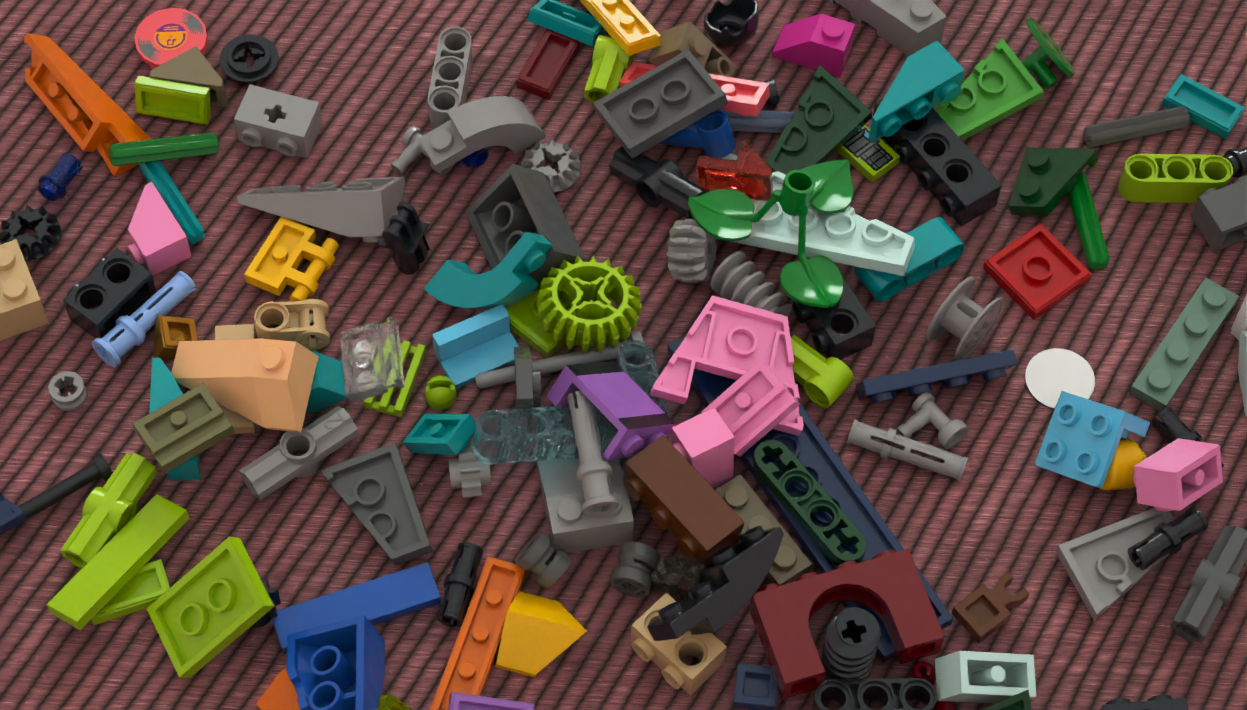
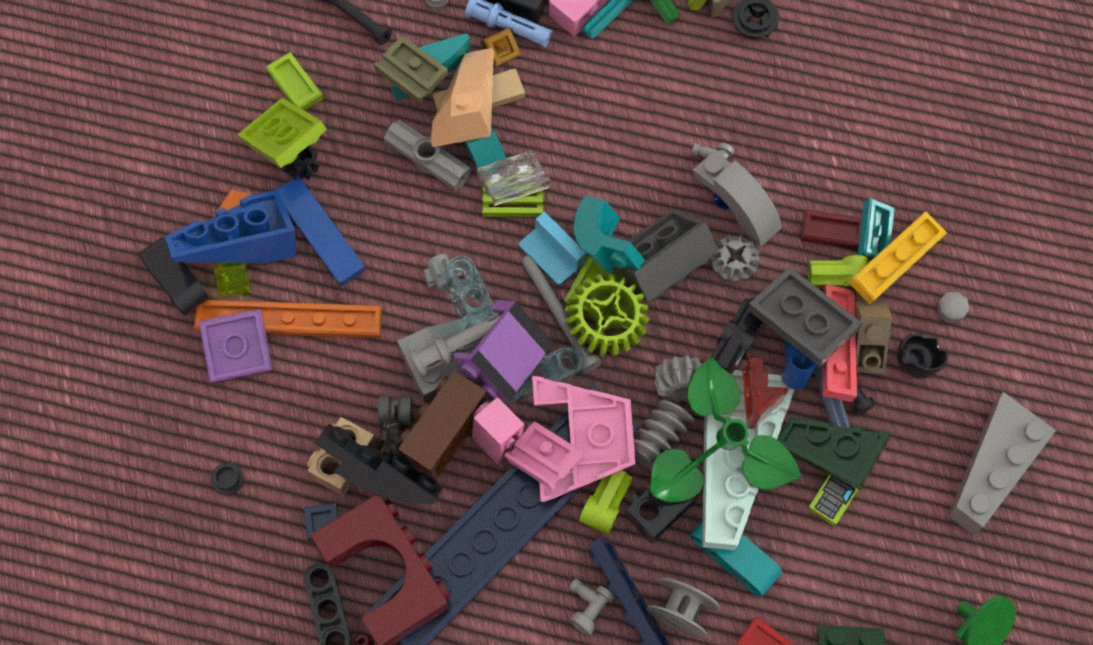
camera: 75 degrees right, 10 degrees up
(109, 509) = (344, 49): lime piece -> none
(117, 562) = (309, 67): lime tile -> none
(278, 121) = (704, 38): light grey brick -> none
(281, 255) = (587, 93): yellow plate -> none
(294, 322) = (532, 121): tan piece -> none
(352, 211) = (641, 117): light grey wedge -> none
(383, 501) = (406, 223): dark grey wing -> none
(406, 239) = (622, 167): black arm -> none
(440, 392) = (503, 239): lime hinge -> none
(441, 434) = (463, 241): teal plate -> none
(450, 74) = (797, 152): light grey beam -> none
(460, 584) = (354, 293): black pin -> none
(526, 381) = (514, 283): dark grey wing -> none
(535, 634) = (329, 353): yellow slope -> none
(543, 560) = (382, 343): dark grey wheel -> none
(790, 560) = (456, 495): dark tan plate -> none
(814, 500) = (475, 519): dark green beam -> none
(816, 42) = (925, 431): dark pink slope -> none
(850, 644) = (361, 567): black piece -> none
(861, 436) = (558, 577): light grey pin -> none
(921, 84) = (894, 516): teal slope -> none
(954, 161) = (881, 516): black brick -> none
(991, 93) = (927, 587): bright green wing -> none

